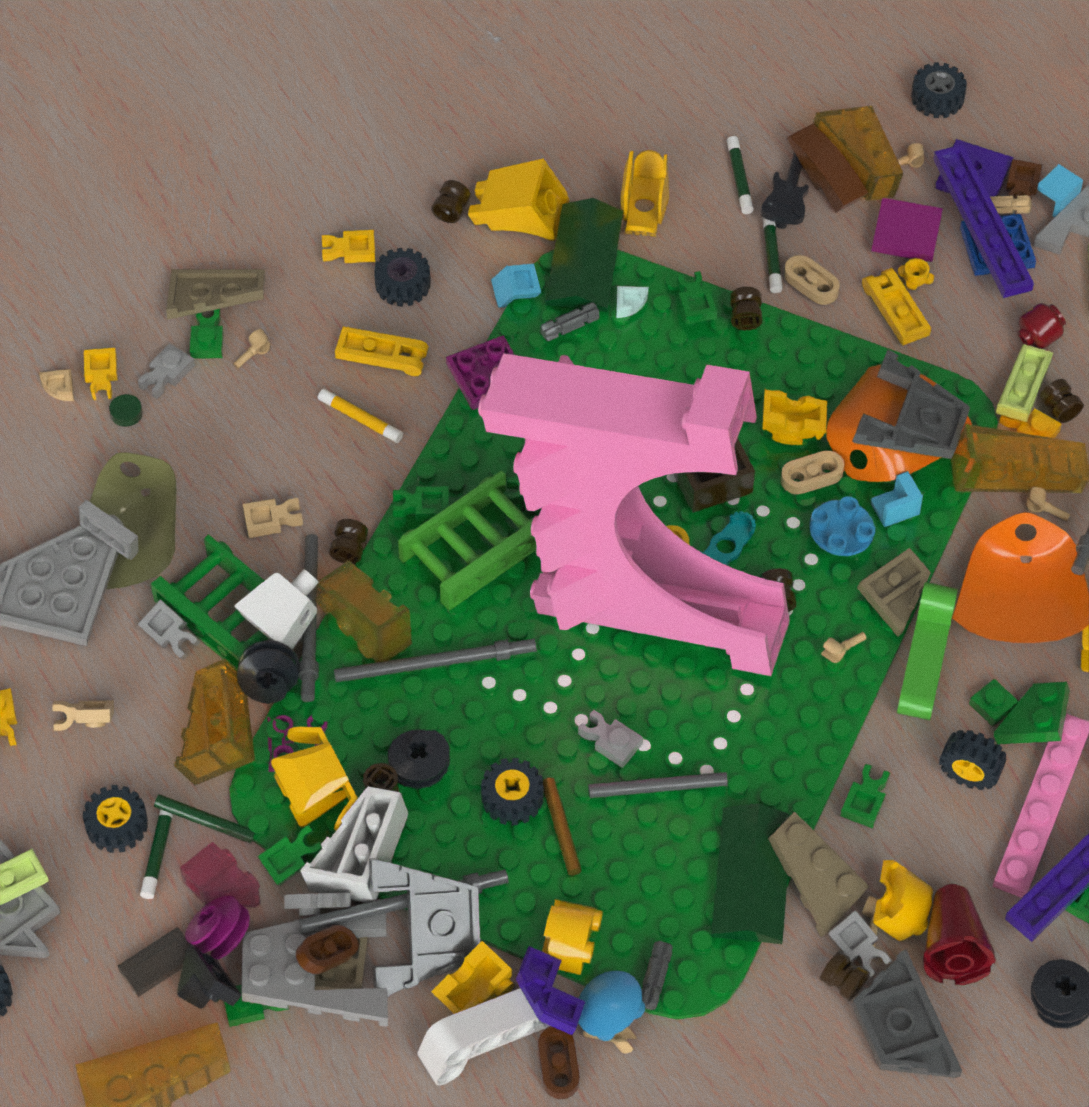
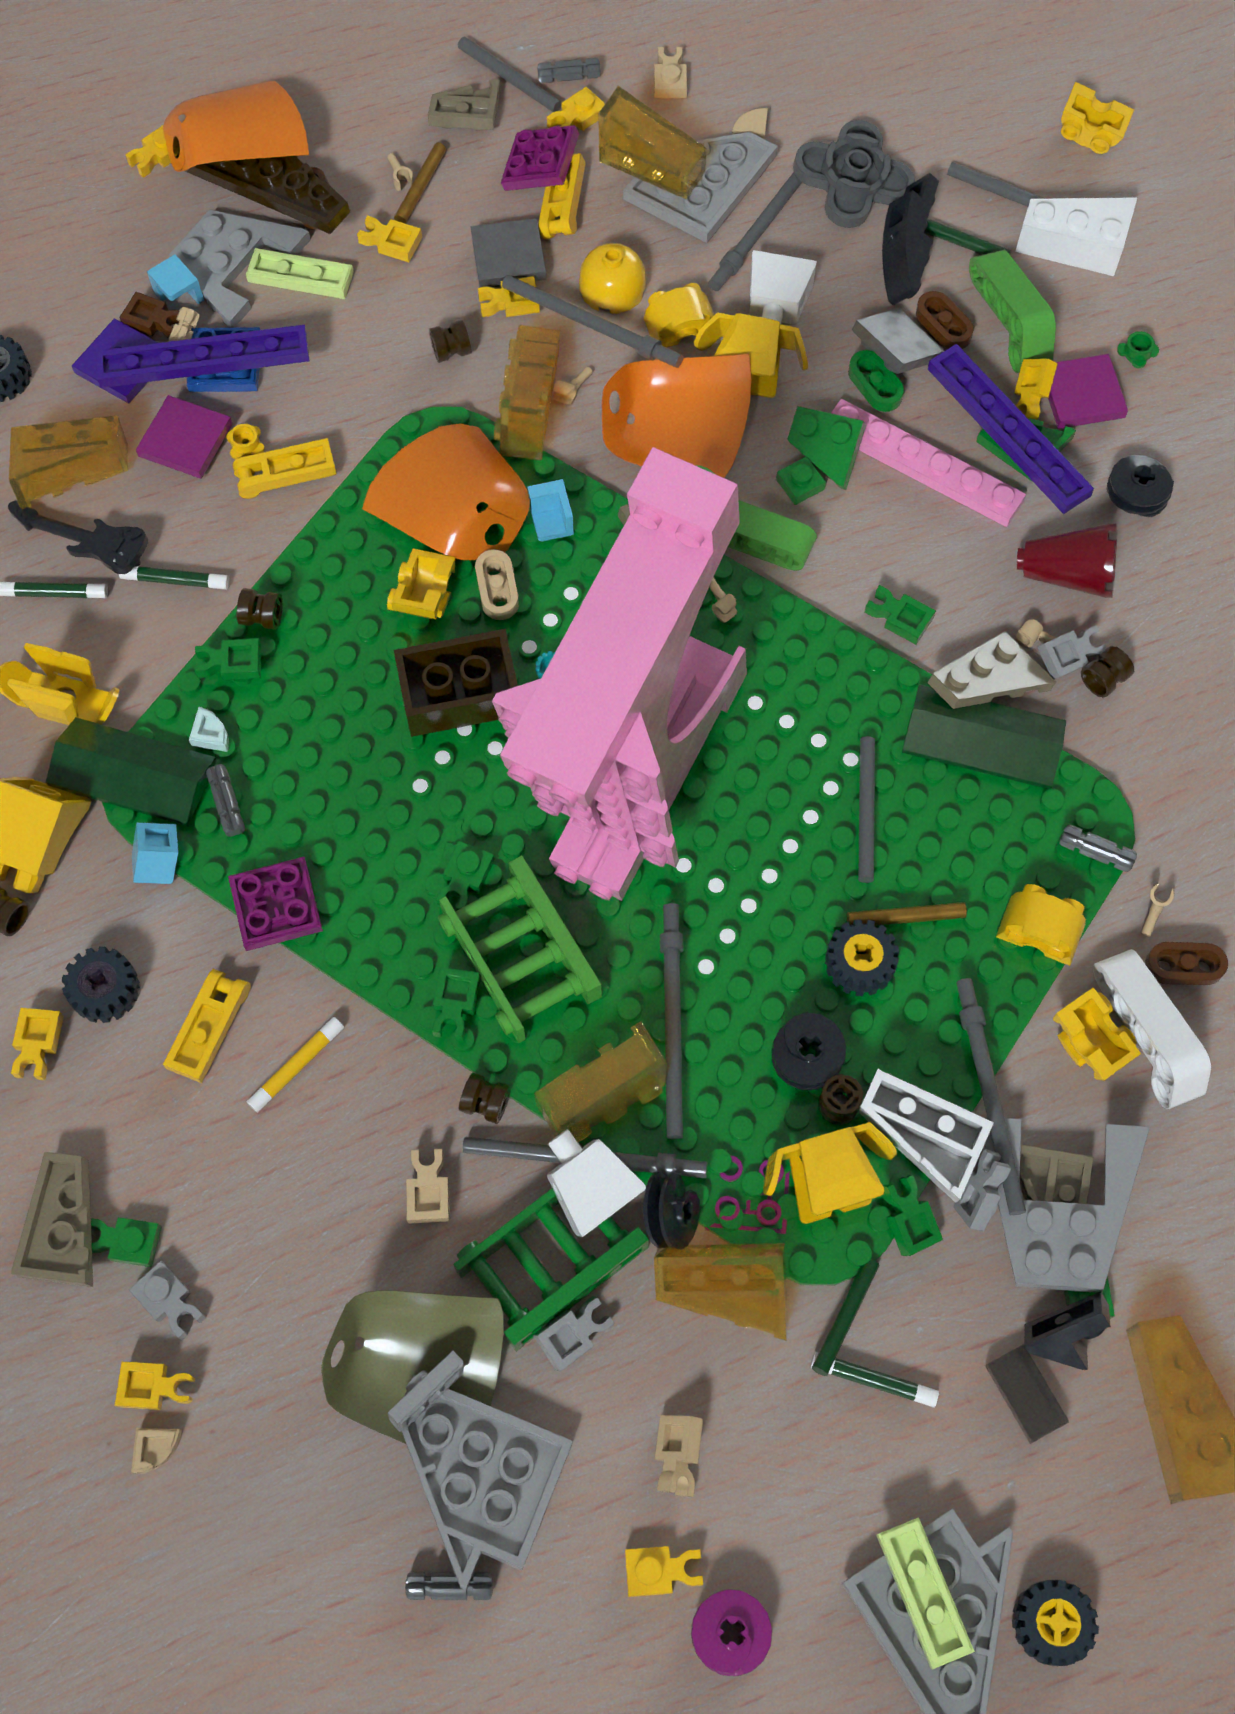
camera: 80 degrees left, 10 degrees up
(110, 807) = (840, 1413): black wheel -> none
(125, 410) = (219, 1359): dark green tile -> none
(215, 874) = (934, 1307): clear pink slope -> none
(218, 926) = (1013, 1299): magenta piece -> none
(259, 345) = (155, 1173): tan hand -> none
(326, 949) = (1057, 1184): reddish brown plate -> none
(440, 923) = (1031, 1060): wing -> none
(548, 1003) = (1102, 965): dark purple tile -> none
(610, 1004) = (1131, 898): dark azure dish -> none
(612, 741) = (804, 843): light grey plate -> none
(814, 279) = (226, 542): tan plate -> none
(827, 167) = (78, 493): reddish brown slope -> none
(842, 527) = (569, 568): dark azure dish -> none
(904, 1024) = (1160, 630): dark grey wing -> none
(905, 903) = (1029, 593): yellow cylinder -> none
(914, 156) = (79, 409): tan hand -> none
(928, 419) = (471, 446): dark grey wing -> none
(972, 759) = (880, 504): black wheel -> none
(1024, 383) = (418, 369): yellowish green tile -> none
(1037, 424) = (469, 375): yellow plate -> none
(1041, 326) = (350, 338): dark red head -> none

